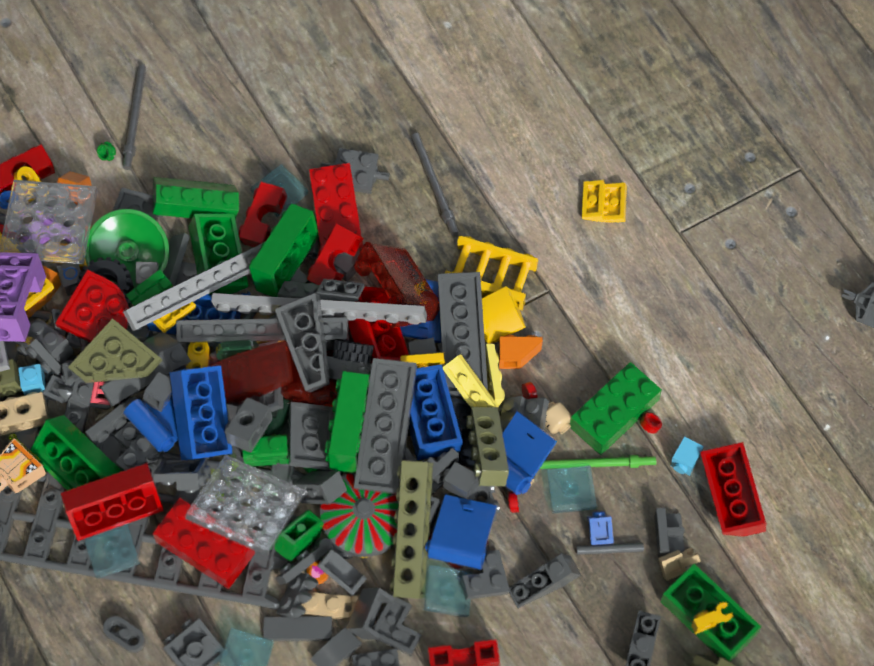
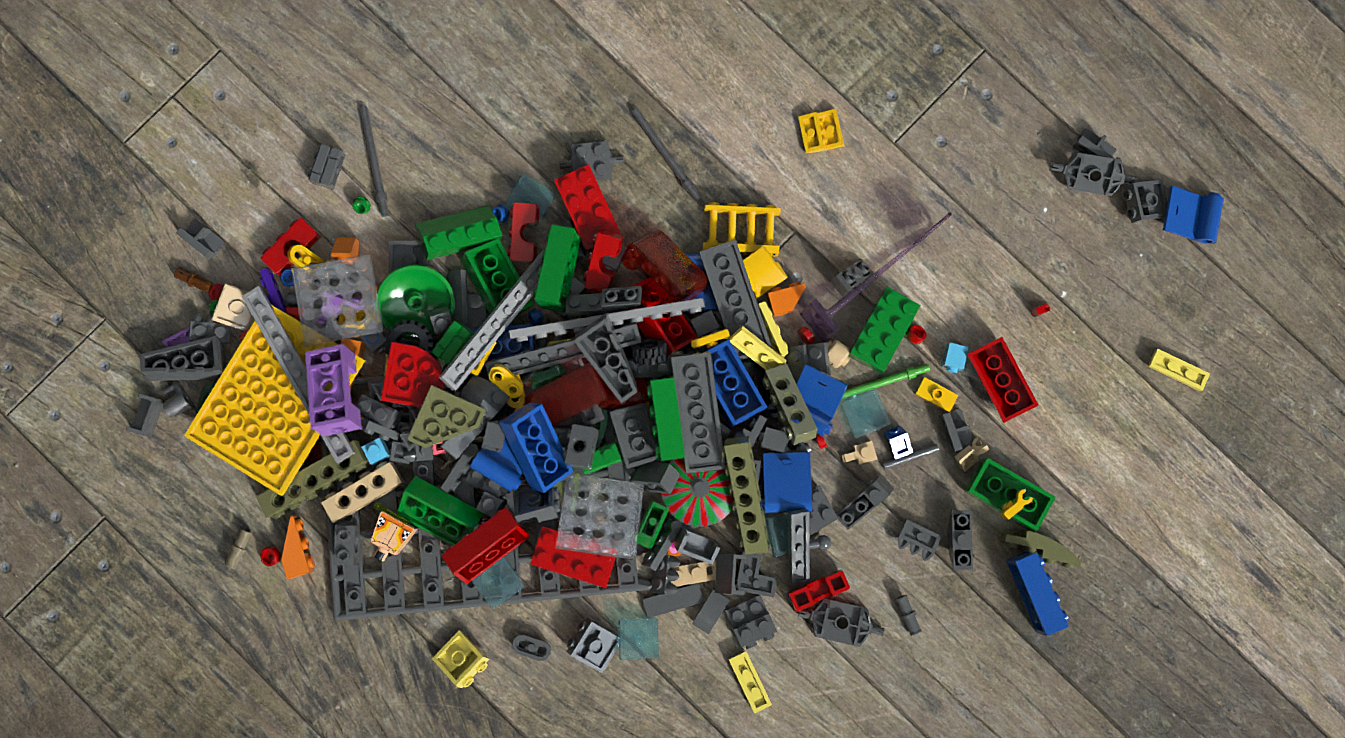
camera: 20 degrees left, 20 degrees up
(42, 624) = (461, 660): none -> light yellow plate
(84, 108) = (326, 166): none -> dark grey brick
(192, 343) = (508, 380): none -> yellow plate
(245, 194) = (501, 213): none -> blue plate
(456, 603) = (800, 546): none -> dark grey plate
(550, 379) = (822, 320): none -> clear purple piece
(557, 530) = (862, 453): none -> tan plate
(593, 346) = (851, 277): none -> dark grey slope
(594, 636) = (919, 538): none -> dark grey plate
(656, 491) = (936, 394): none -> yellow plate
(796, 433) = (1040, 310): none -> red tile

